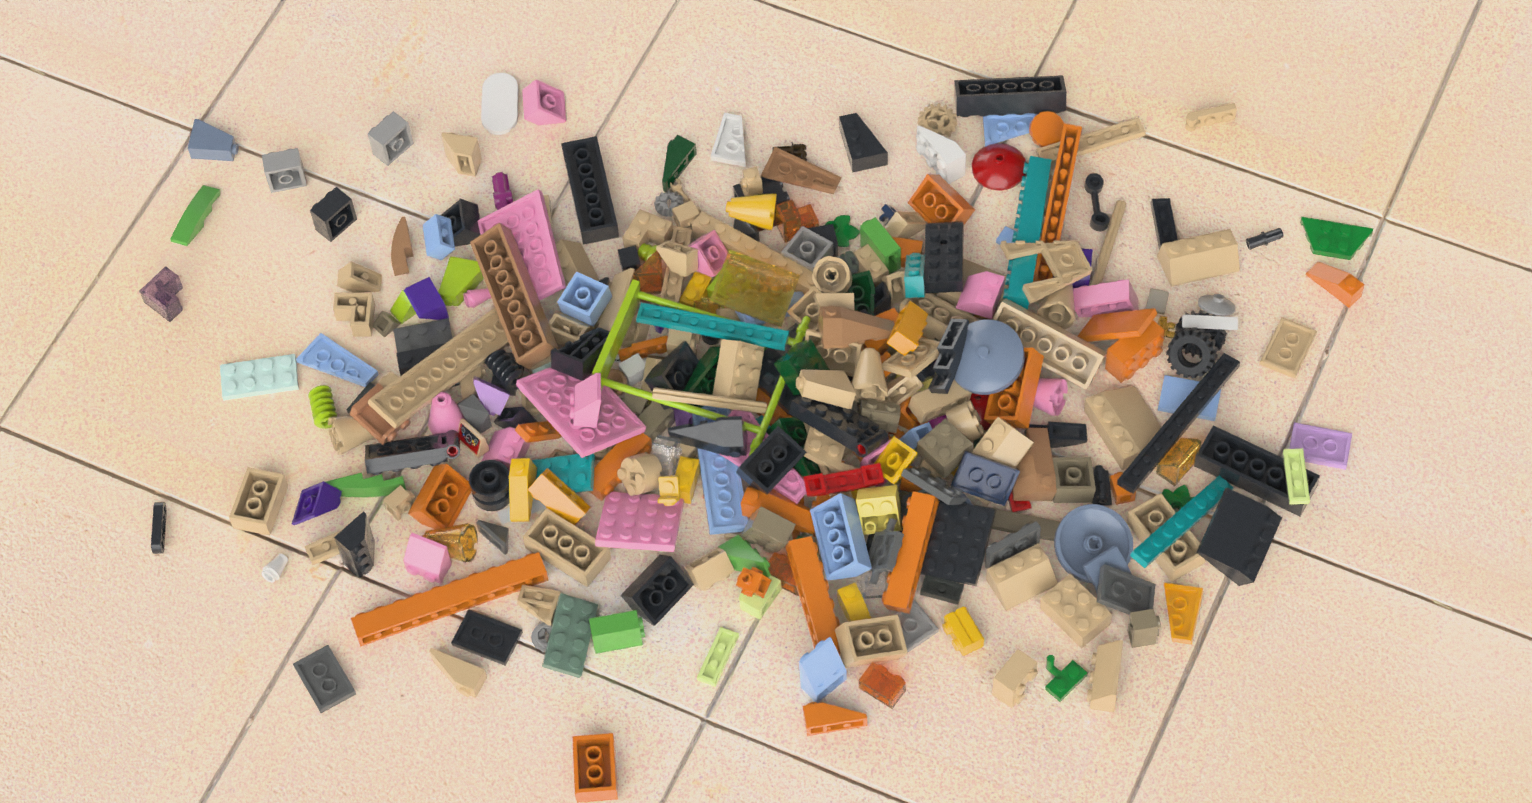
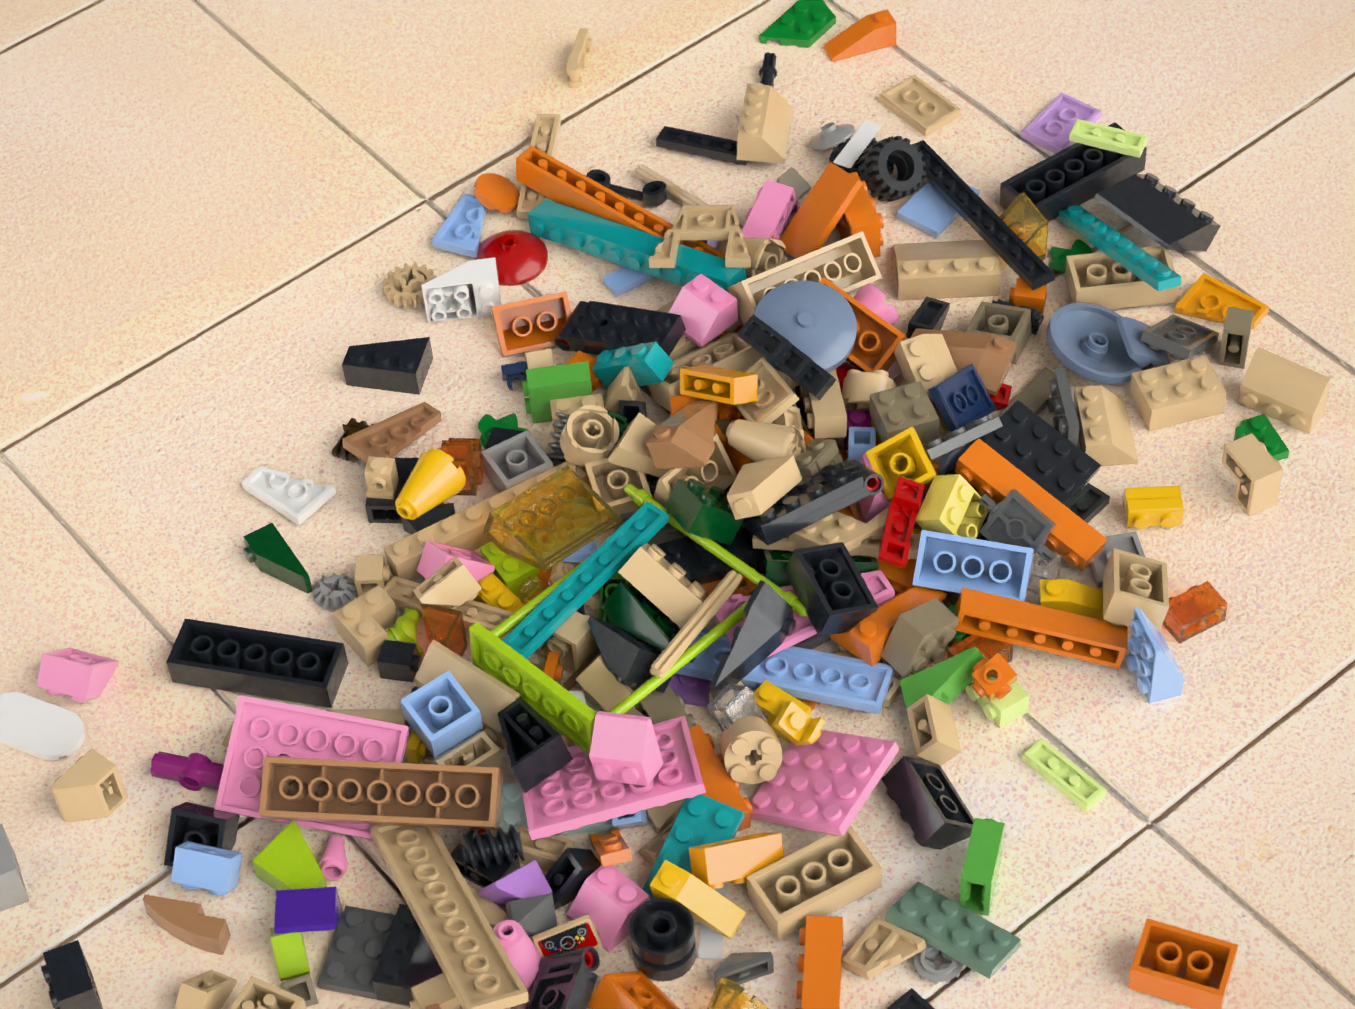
camera: 65 degrees left, 10 degrees down
(678, 188) = (316, 574): tan hand -> none
(828, 718) = (1214, 684): orange slope -> none
(1010, 96) = (429, 204): black brick -> none

